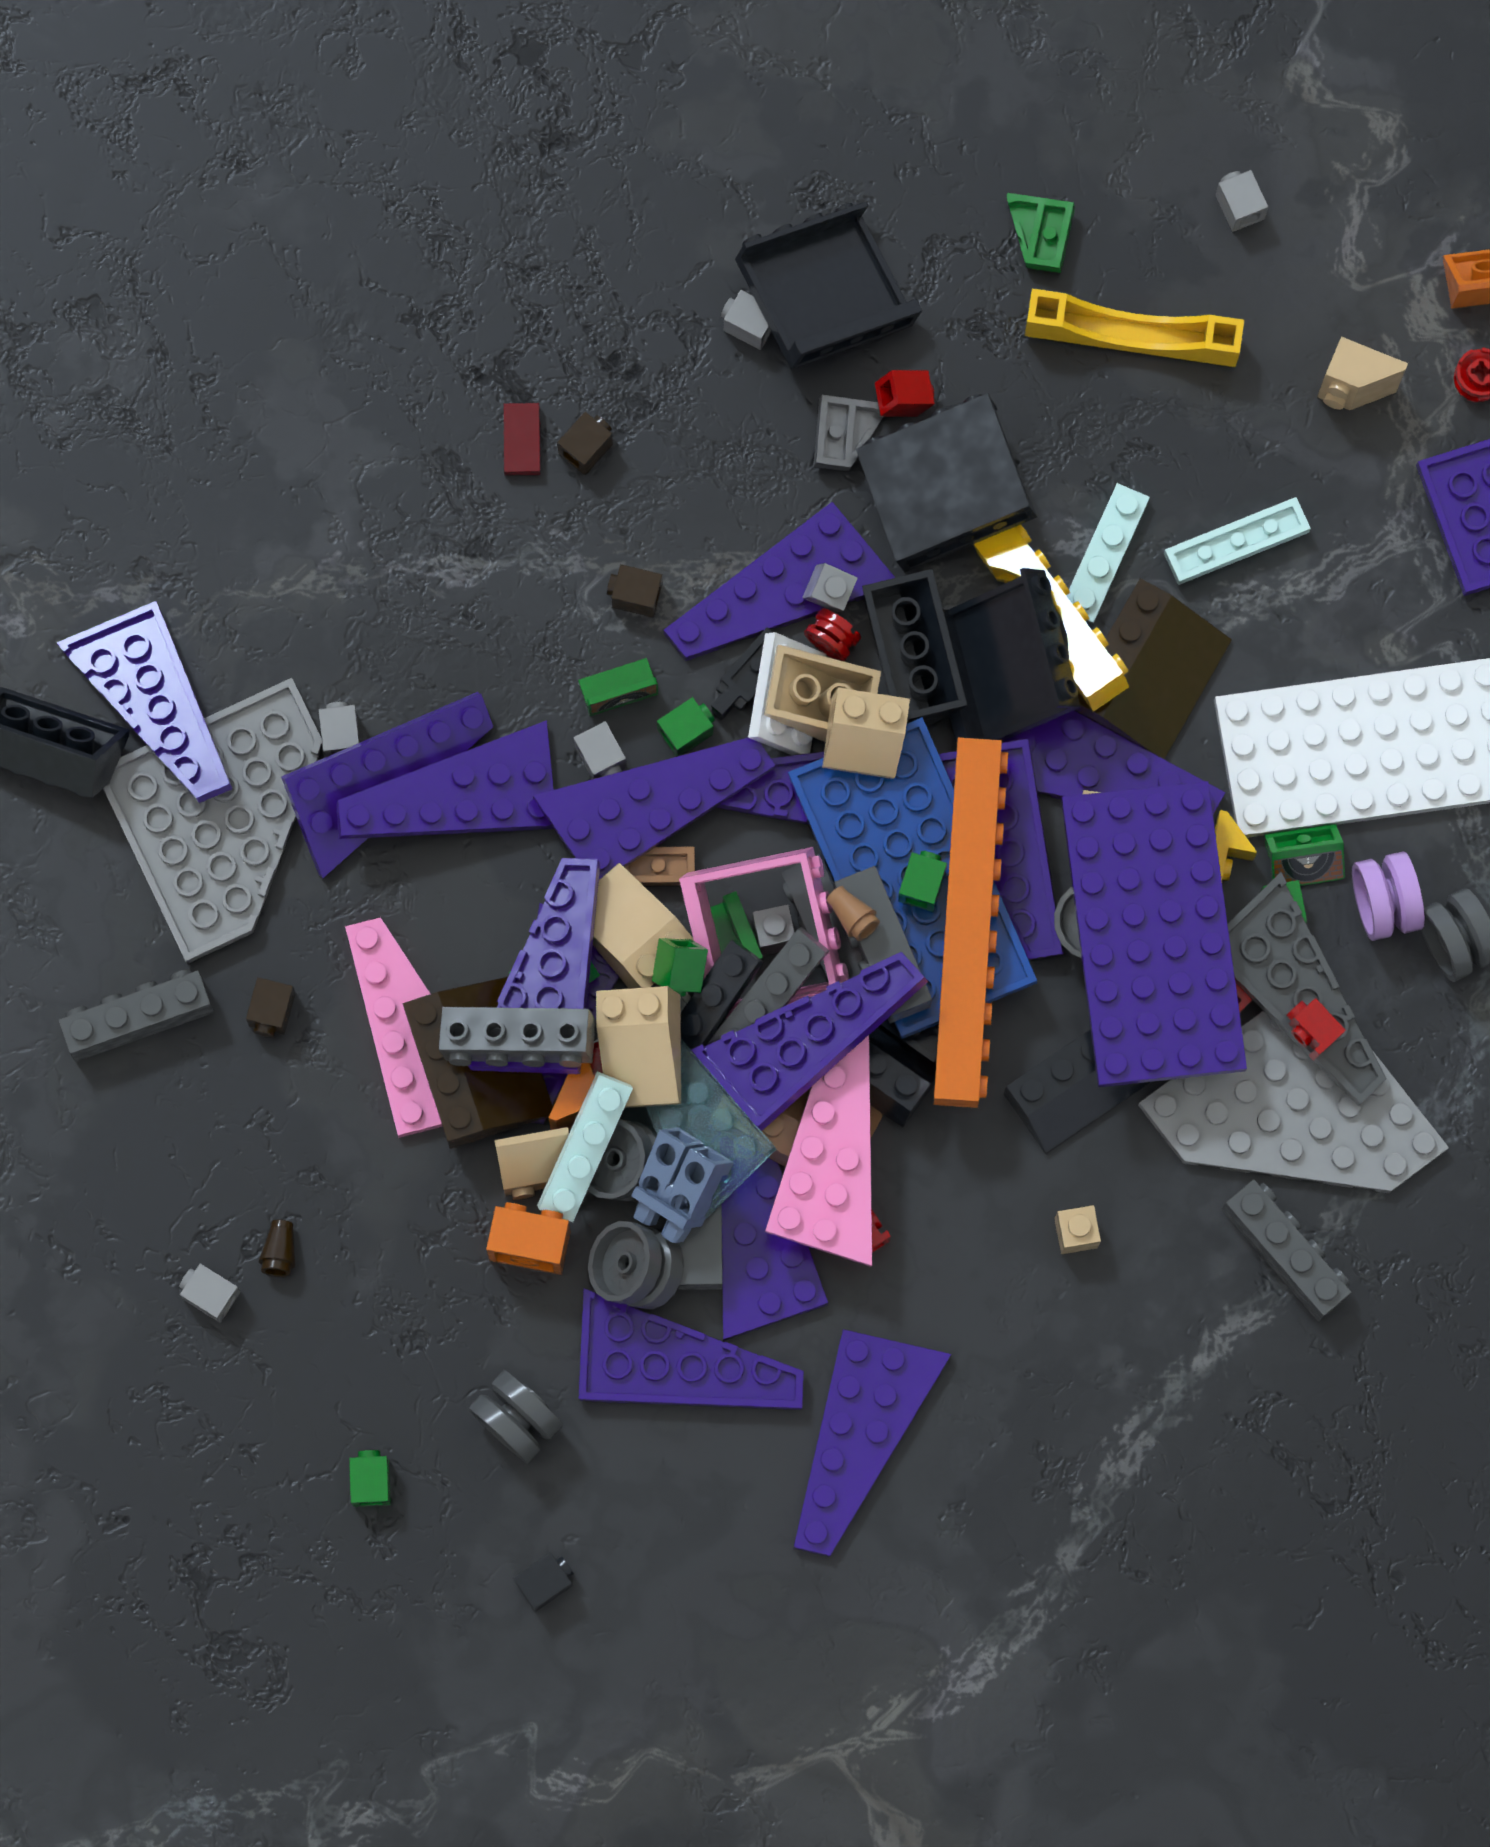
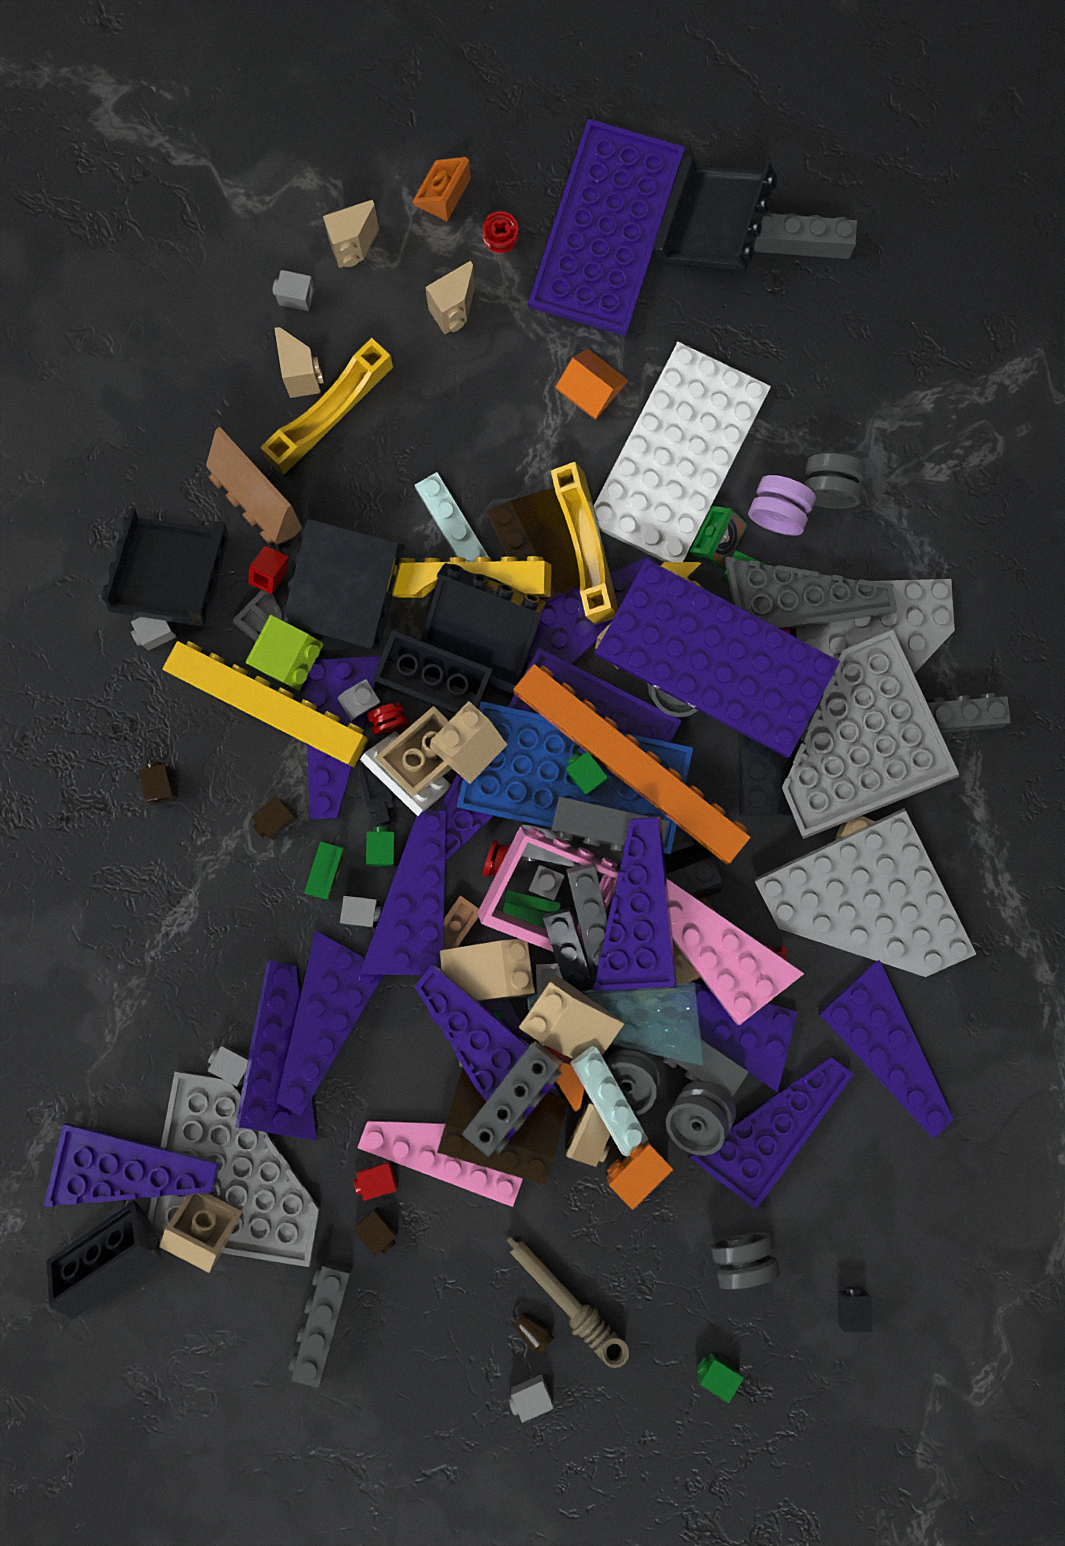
camera: 55 degrees left, 5 degrees up
(148, 817) = (200, 1230): none -> tan slope
(324, 969) = (376, 1181): none -> red brick
(331, 1290) = (583, 1318): none -> dark tan piece
(521, 439) = (126, 820): dark red tile -> none
(678, 1183) = (674, 1058): sand blue hips -> none
(680, 965) = (535, 961): green brick -> none
(754, 494) = (266, 704): none -> yellow brick
(757, 850) = (499, 852): none -> red wheel
(824, 474) = (284, 653): none -> lime slope
(855, 916) = (582, 832): medium nougat cone -> none
(976, 315) = (251, 491): none -> medium nougat slope
(1011, 1295) = (871, 898): none -> light grey plate
(1042, 229) = (227, 414): green wing -> none
(1153, 264) = (298, 366): none -> tan slope
(1183, 1167) = (866, 741): none -> light grey plate
(1228, 666) = (595, 579): none -> yellow arch
(1237, 541) = (500, 441): light aqua plate -> none
(1314, 1026) = (838, 603): red brick -> none
(1350, 216) = (352, 232): none -> tan slope
(1380, 594) = (590, 383): none -> orange slope

